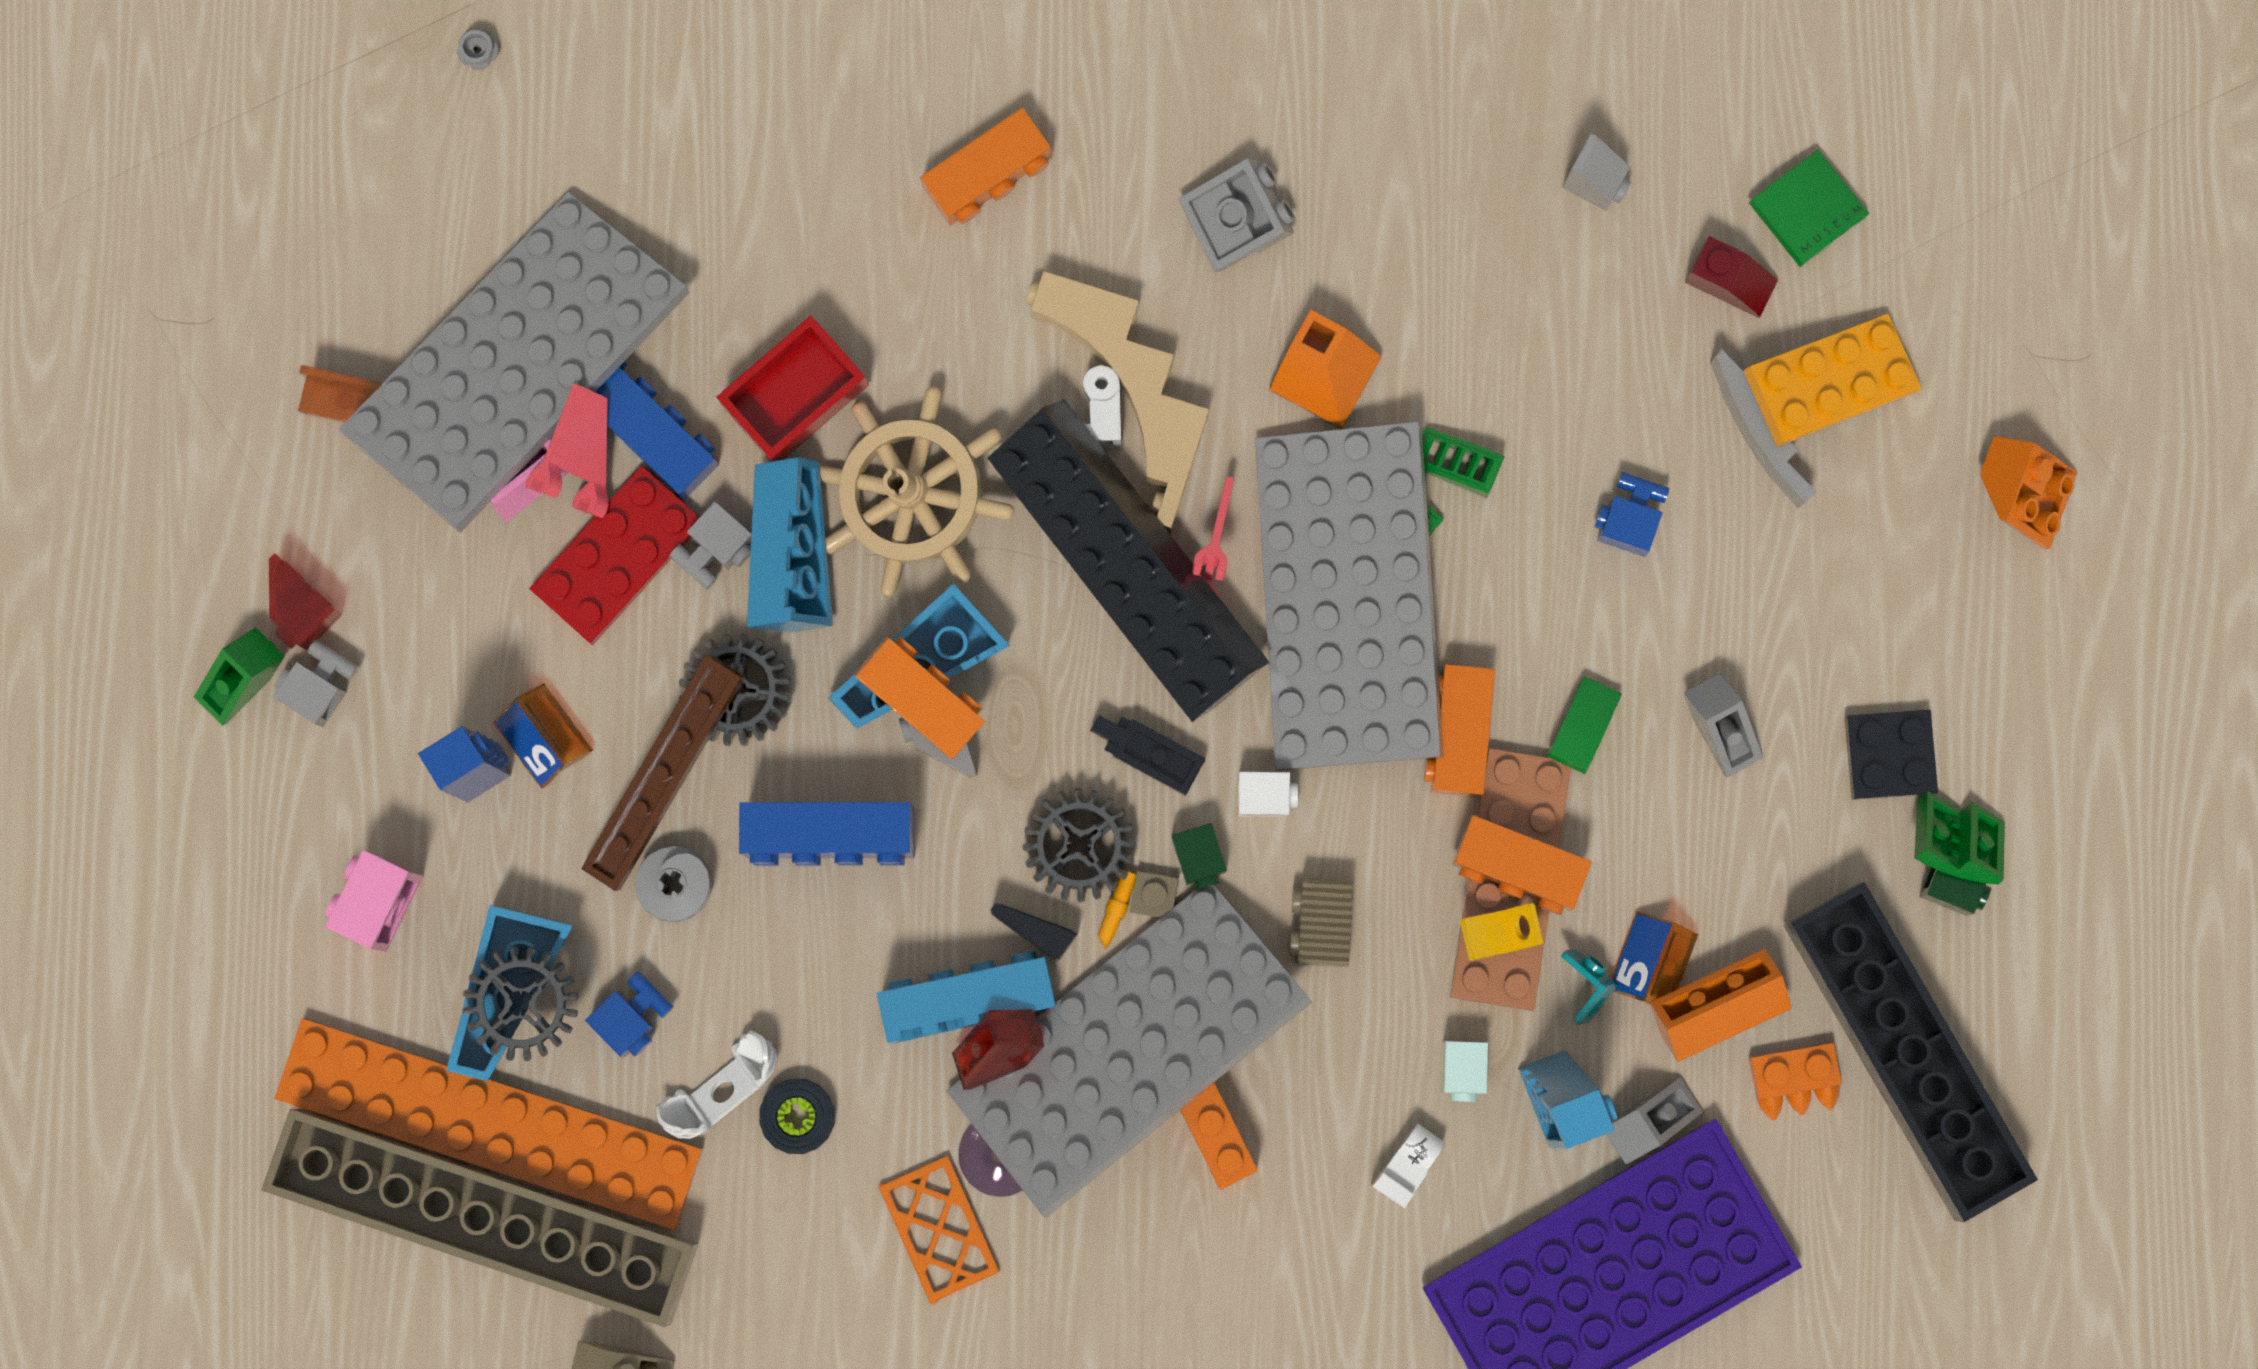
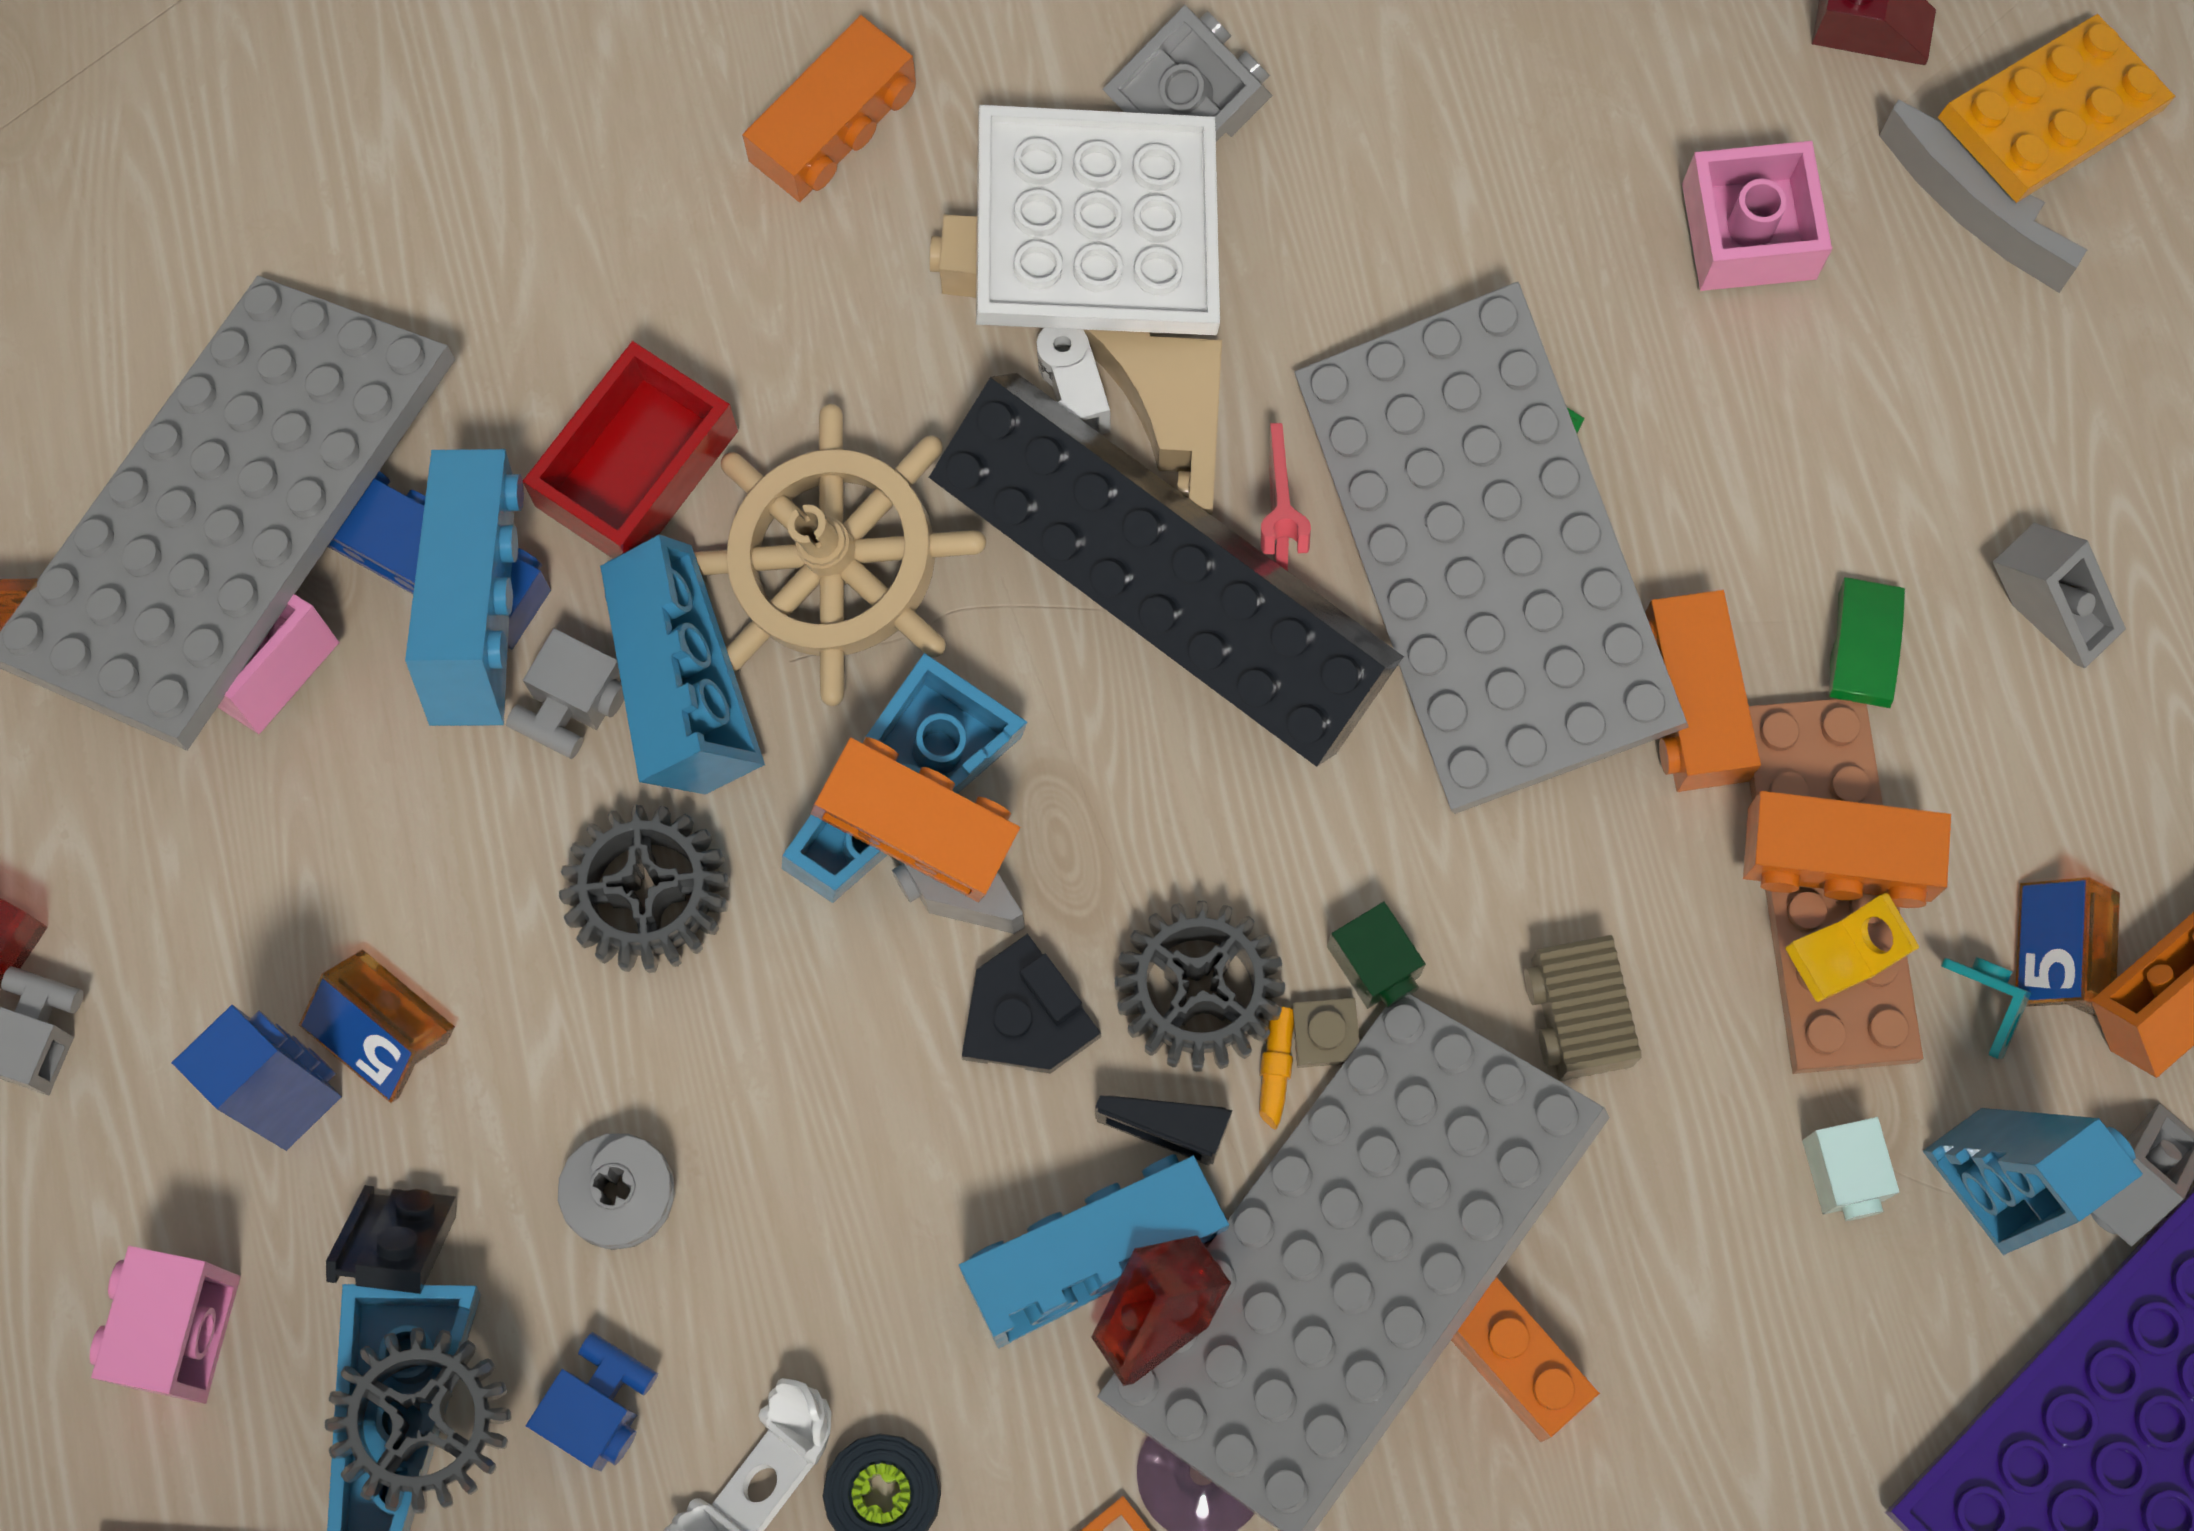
camera: 15 degrees left, 10 degrees down
(475, 38) = (87, 111): light grey plate -> none
(525, 881) = (392, 1239): none -> black plate
(578, 449) = (342, 598): coral flag -> none
(615, 556) = (416, 779): red plate -> none
(663, 462) = (464, 587): none -> dark azure wedge
(663, 772) = (563, 1028): reddish brown plate -> none
(826, 831) = (824, 1053): blue brick -> none
(962, 833) = (1025, 1013): none -> black plate
(1145, 305) = (1097, 220): none -> white plate
(1150, 752) = (1264, 830): black hinge -> none
(1266, 794) = (1447, 847): white brick -> none
(1325, 369) = (1365, 255): orange slope -> none
(1408, 1165) = (1812, 1334): white leg -> none
(1462, 447) = (1606, 320): green slope -> none
(1599, 408) = (1756, 215): none -> bright pink brick
(1629, 522) = (1841, 355): blue brick -> none

